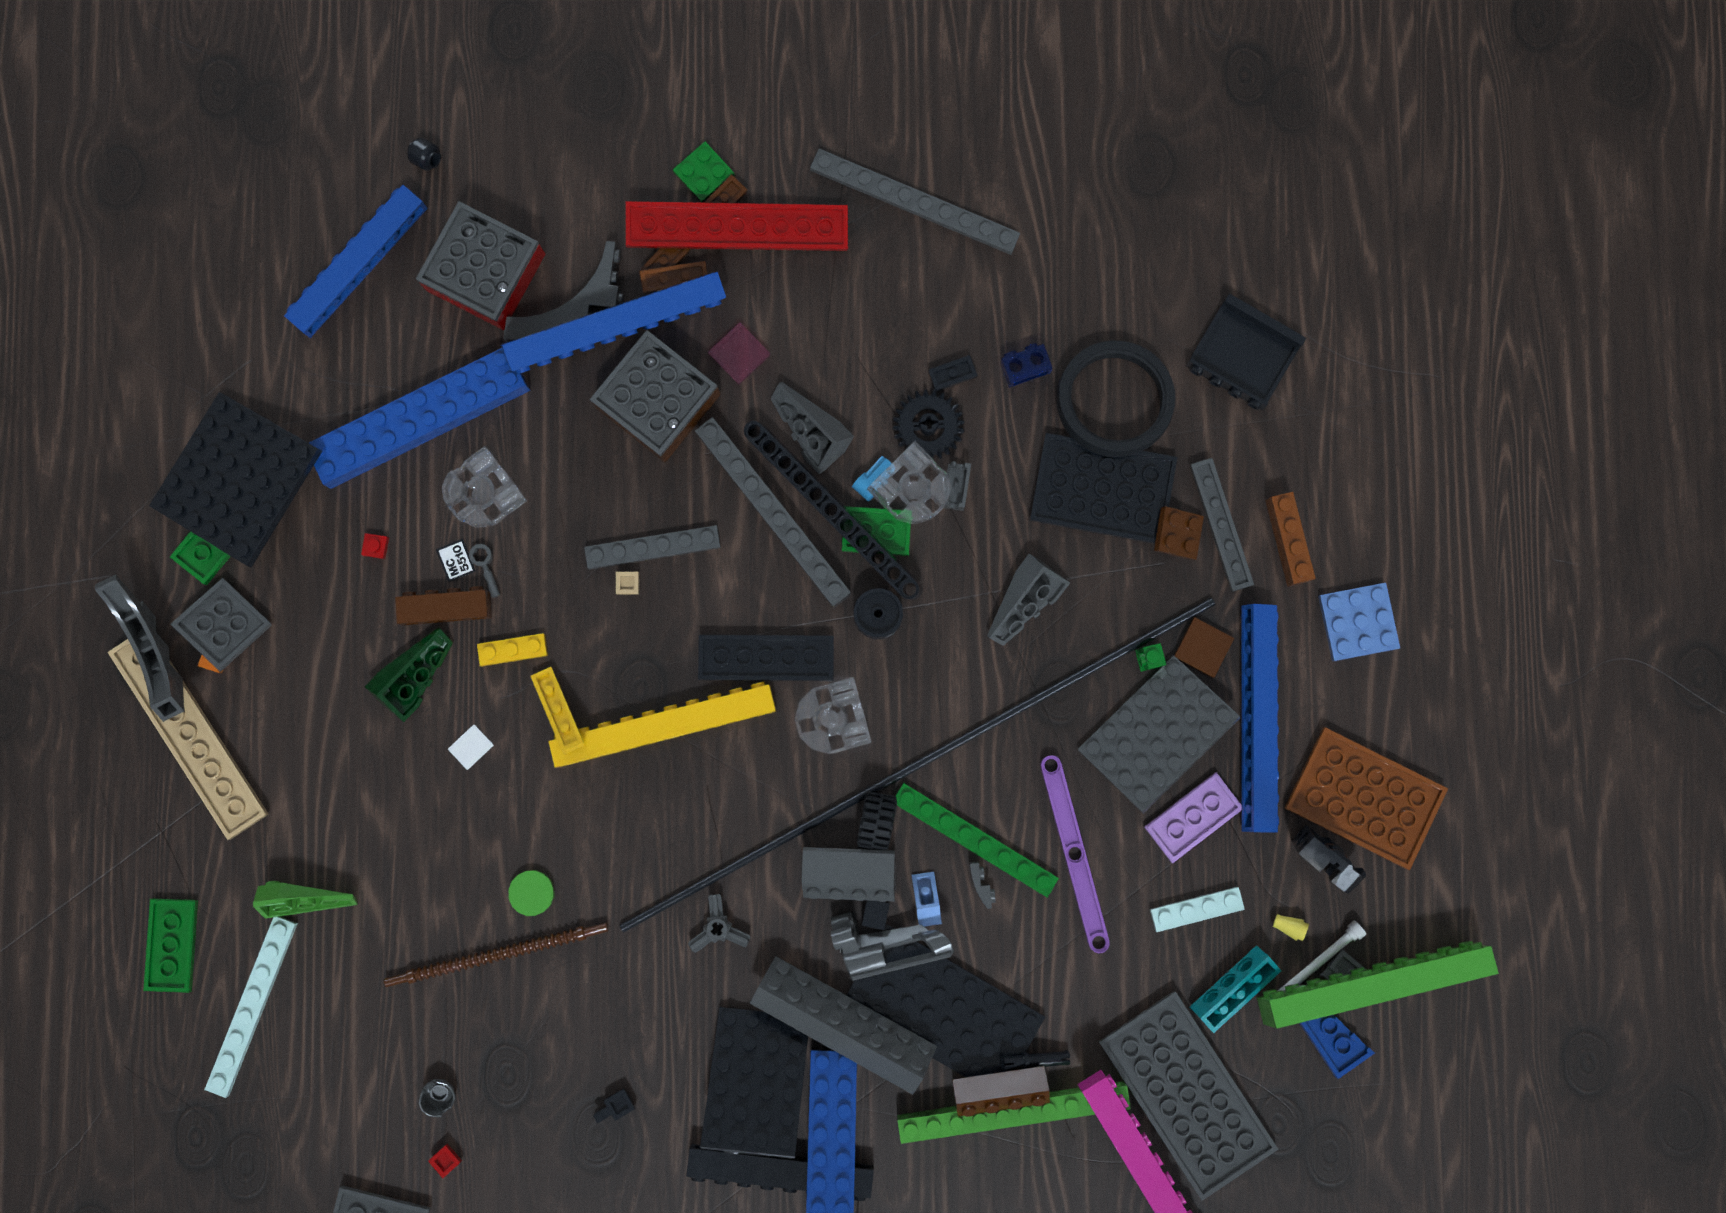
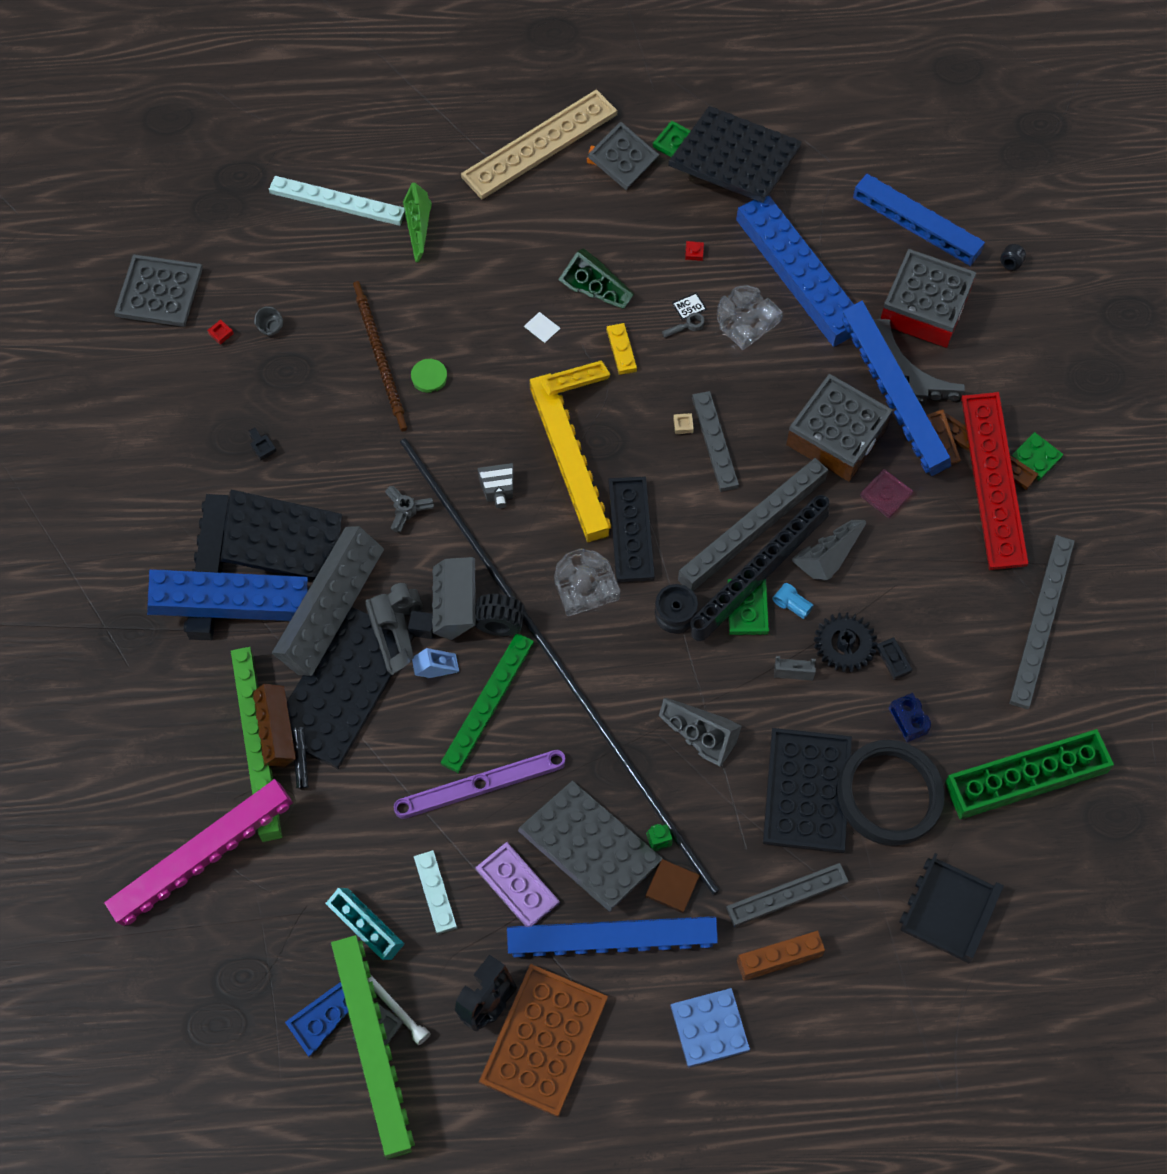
camera: 85 degrees right, 20 degrees down
(139, 625) = (619, 100): dark grey arch -> none
(170, 945) = (381, 147): green tile -> none
(443, 607) = (650, 298): reddish brown brick -> none
(694, 814) = (497, 483): none -> dark grey torso
(886, 489) = (786, 620): clear connector -> none
(983, 890) = (441, 710): dark grey slope -> none
(1103, 246) = (1028, 774): none -> green brick
(1178, 533) = (774, 855): reddish brown plate -> none
(1188, 1095) = (269, 891): dark grey plate -> none
(1292, 927) = (421, 977): light yellow cone -> none

